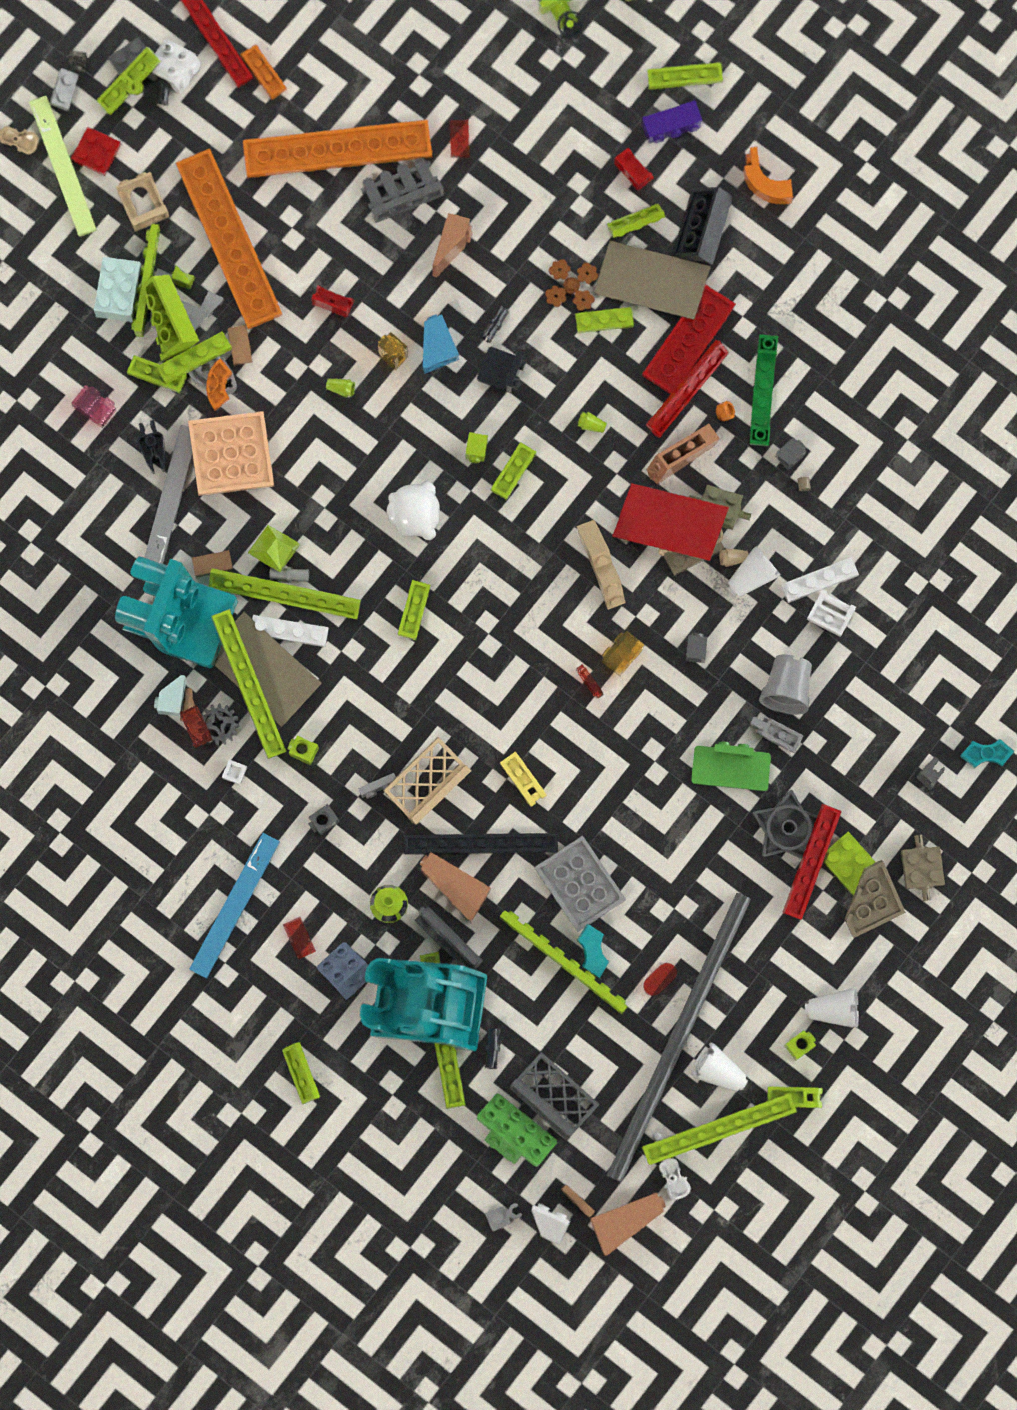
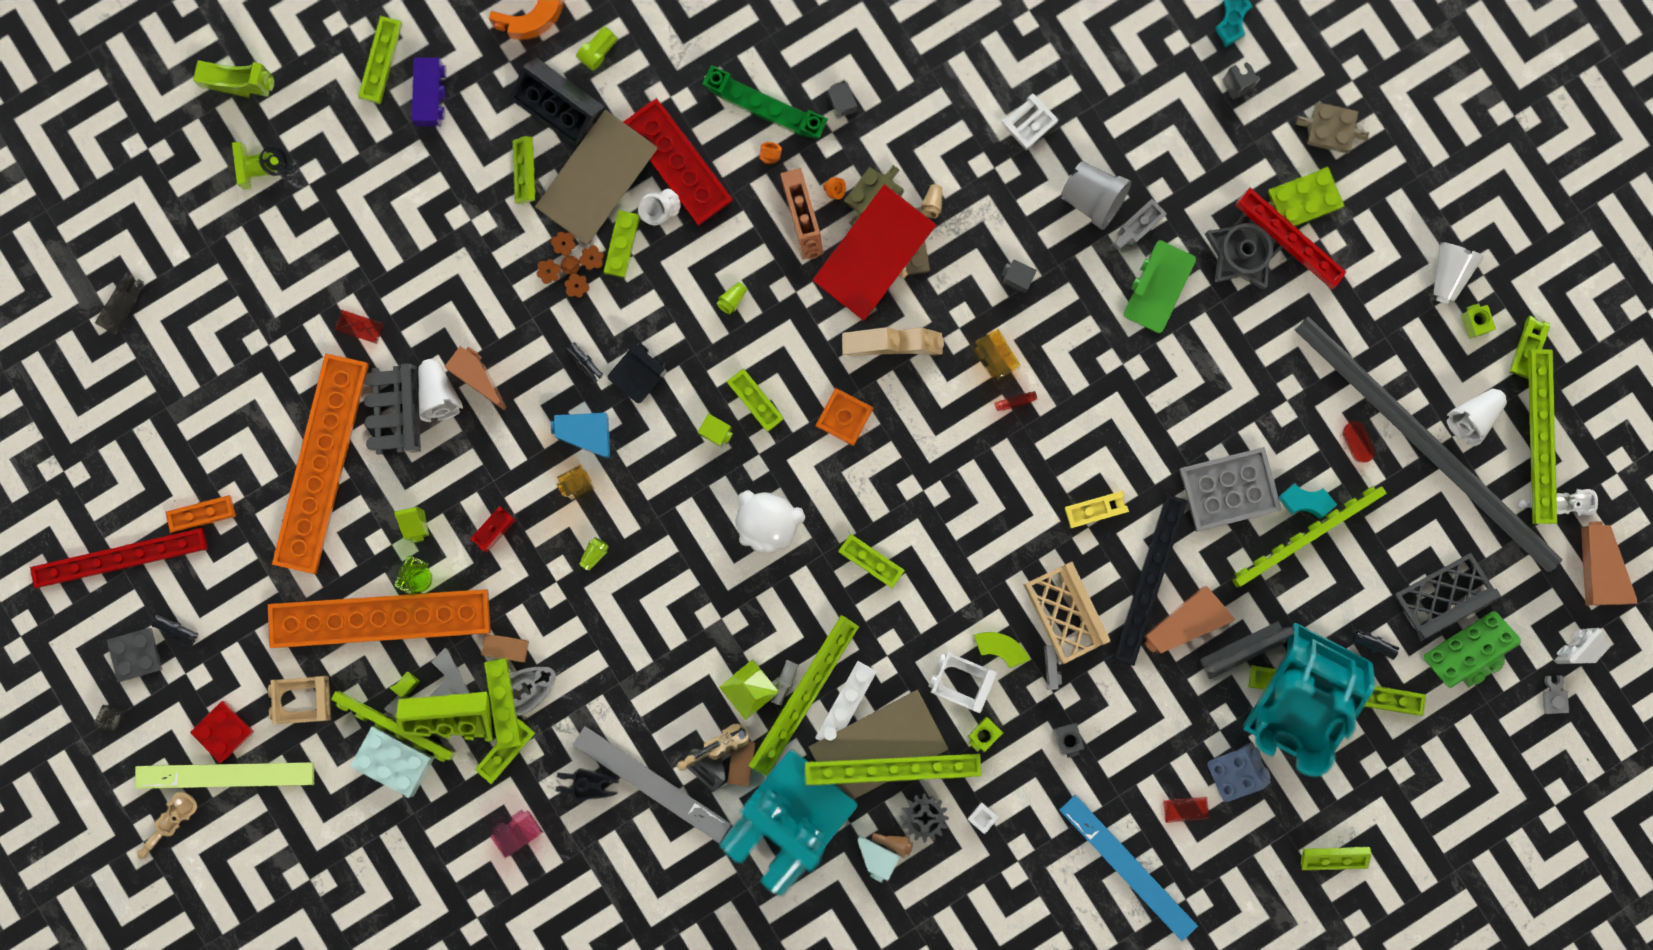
camera: 70 degrees left, 5 degrees up
(63, 89) = (136, 744): light grey plate -> none
(129, 81) = (155, 667): lime hinge -> none
(176, 65) = (155, 610): white bracket -> none
(196, 726) = (921, 843): clear red tile -> none
(199, 536) = (708, 771): none -> dark grey slope
(216, 384) = (541, 689): orange tile -> none
(229, 548) = (731, 738): none -> tan piece
(230, 453) = (625, 700): light nougat plate -> none
(272, 253) = (415, 576): none -> clear neon green piece
(313, 236) = (412, 524): none -> lime slope
(329, 700) = (952, 660): none -> white panel
(381, 740) = (1001, 646): none -> lime tile
(388, 903) = (1183, 700): lime cone -> none
(426, 216) = (436, 393): none -> white cone
(526, 548) = (844, 417): none -> orange tile
(580, 1203) = (1567, 611): medium nougat tile -> none
(633, 169) = (465, 153): red hinge -> none
(645, 337) = (657, 207): none -> white hair
(687, 388) = (731, 182): red tile -> none
(714, 474) = (835, 188): none -> orange tile
(752, 573) = (960, 187): white cone -> none
(754, 240) = (593, 52): none -> lime piece
(804, 484) = (879, 99): dark tan piece -> none
(819, 580) = (988, 121): white plate -> none
(873, 901) = (1353, 190): dark tan plate -> none

